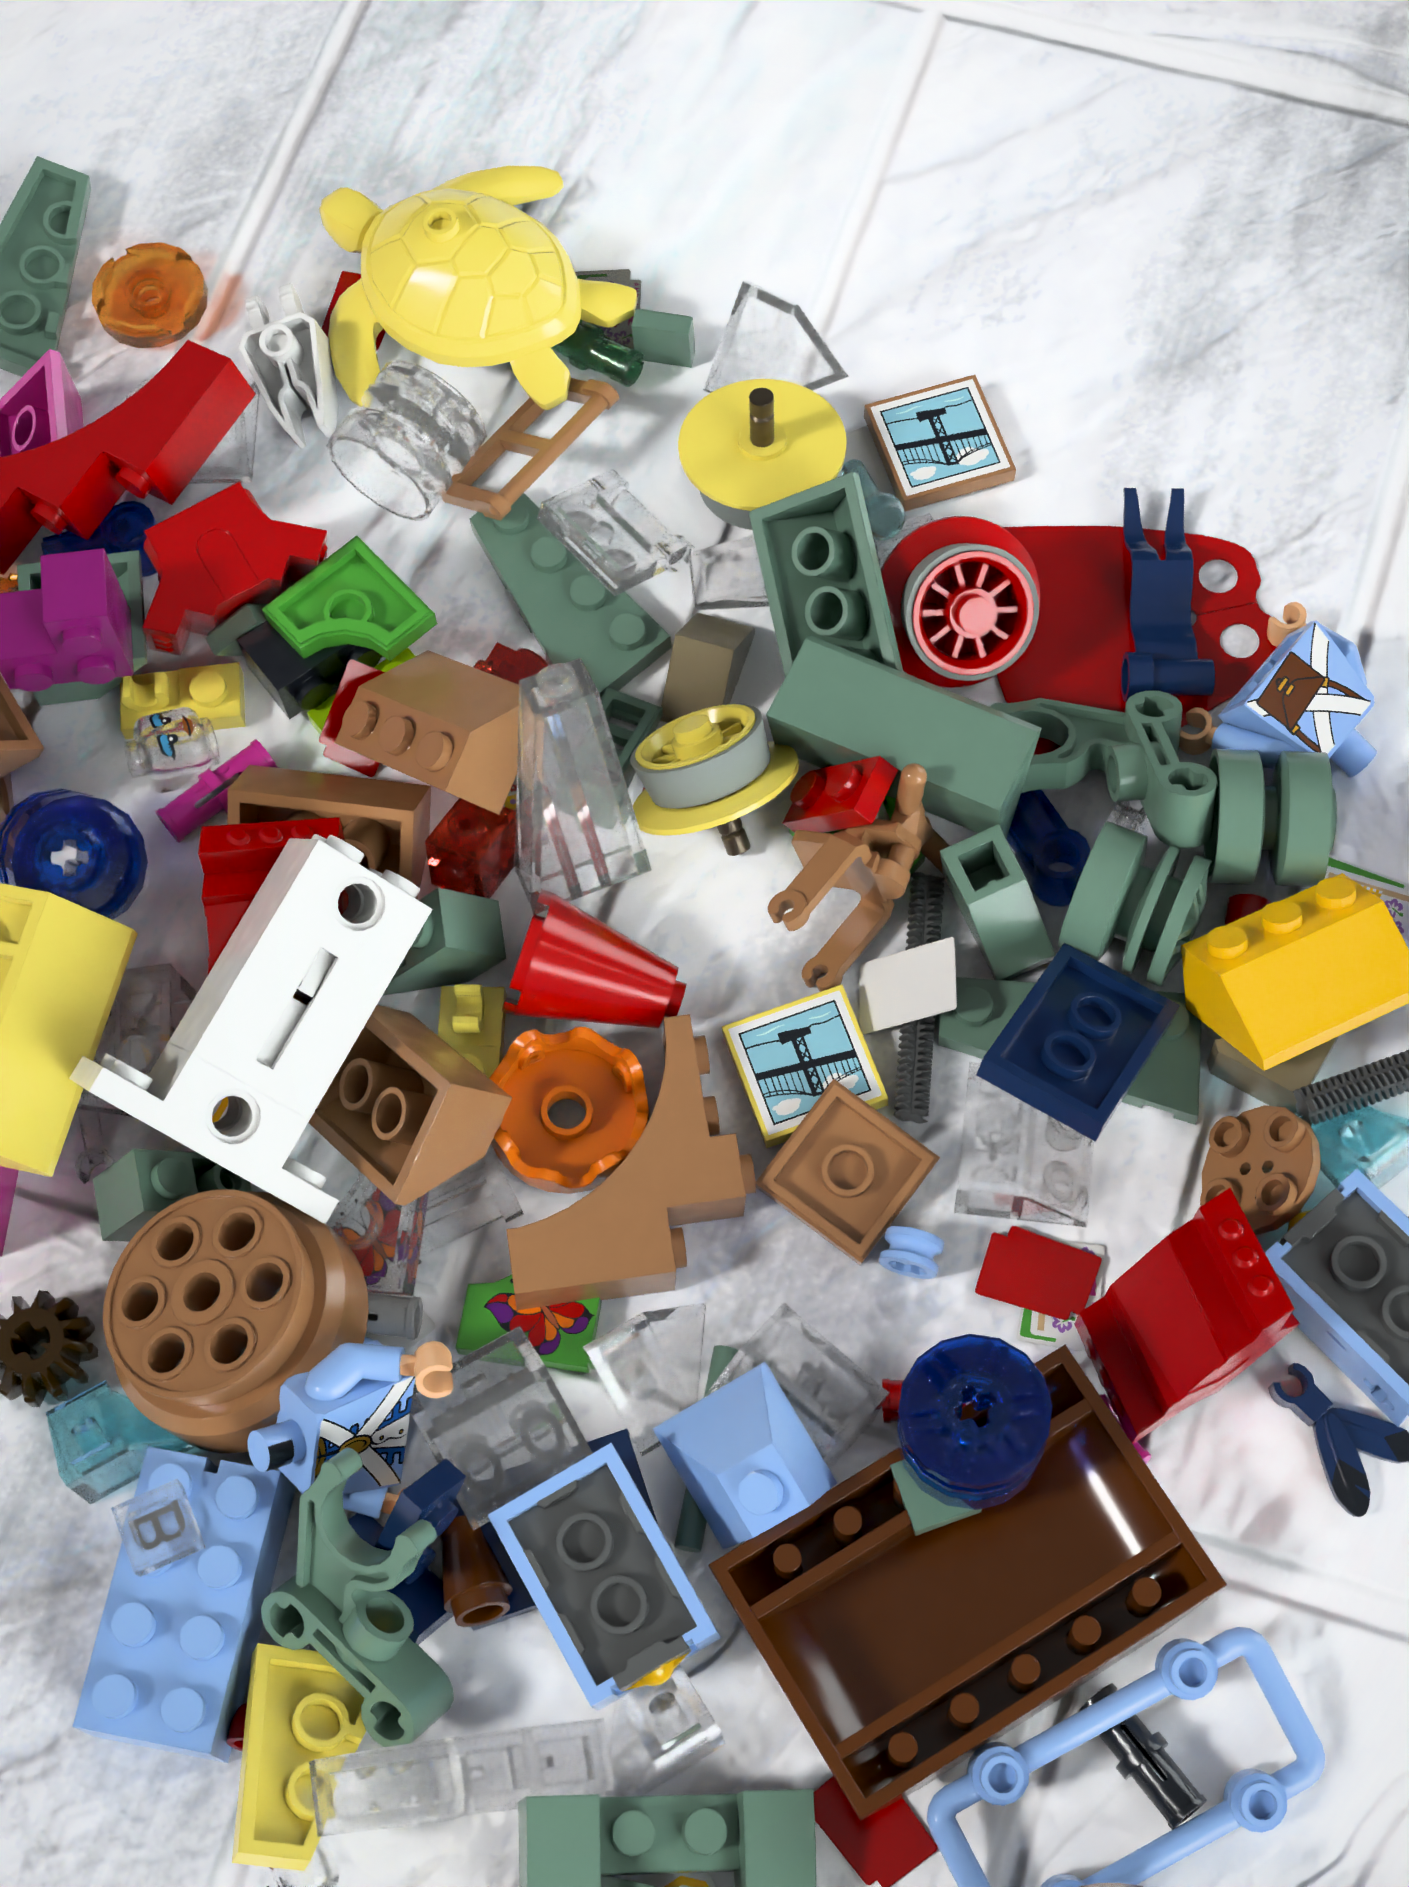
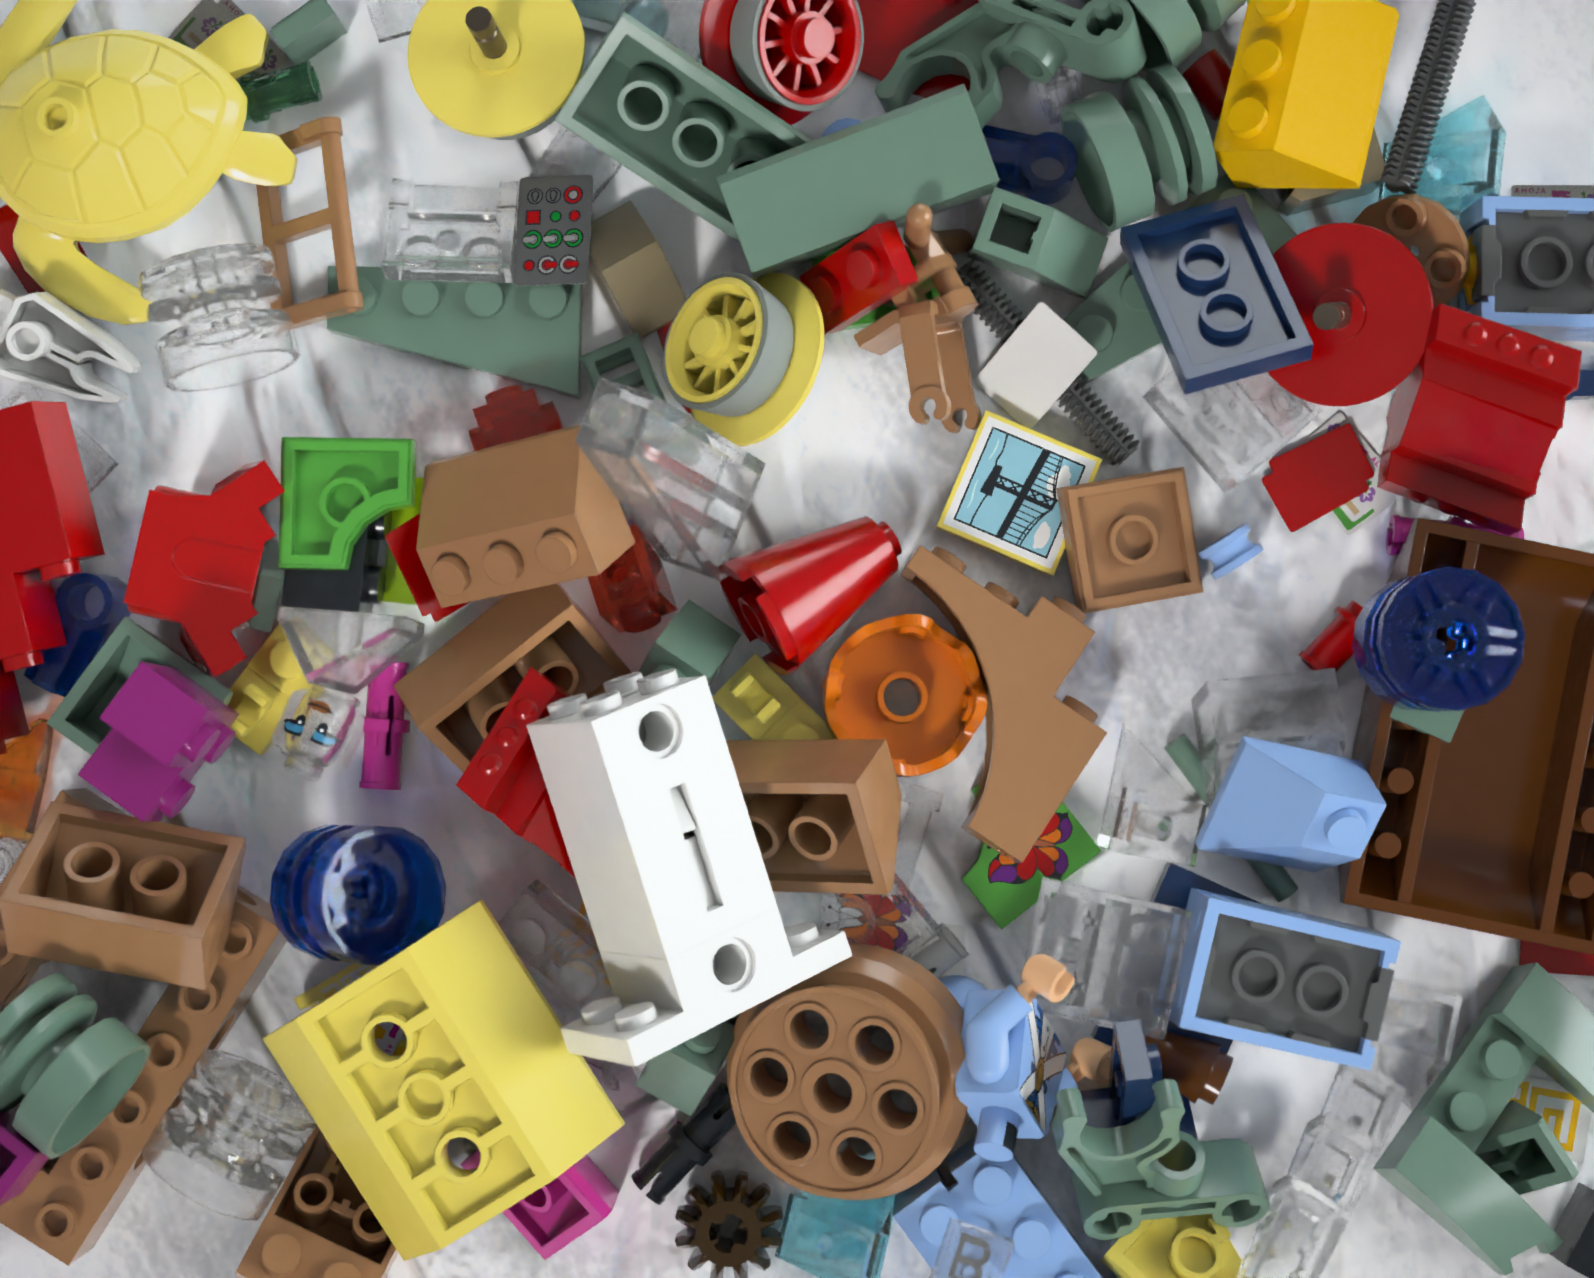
camera: 55 degrees left, 20 degrees up
(72, 1268) = (687, 1146): none -> black pin
(247, 704) = (346, 647): none -> clear slope
(678, 591) = (553, 230): none -> dark grey sticker
(1164, 1151) = (1362, 308): none -> red piece

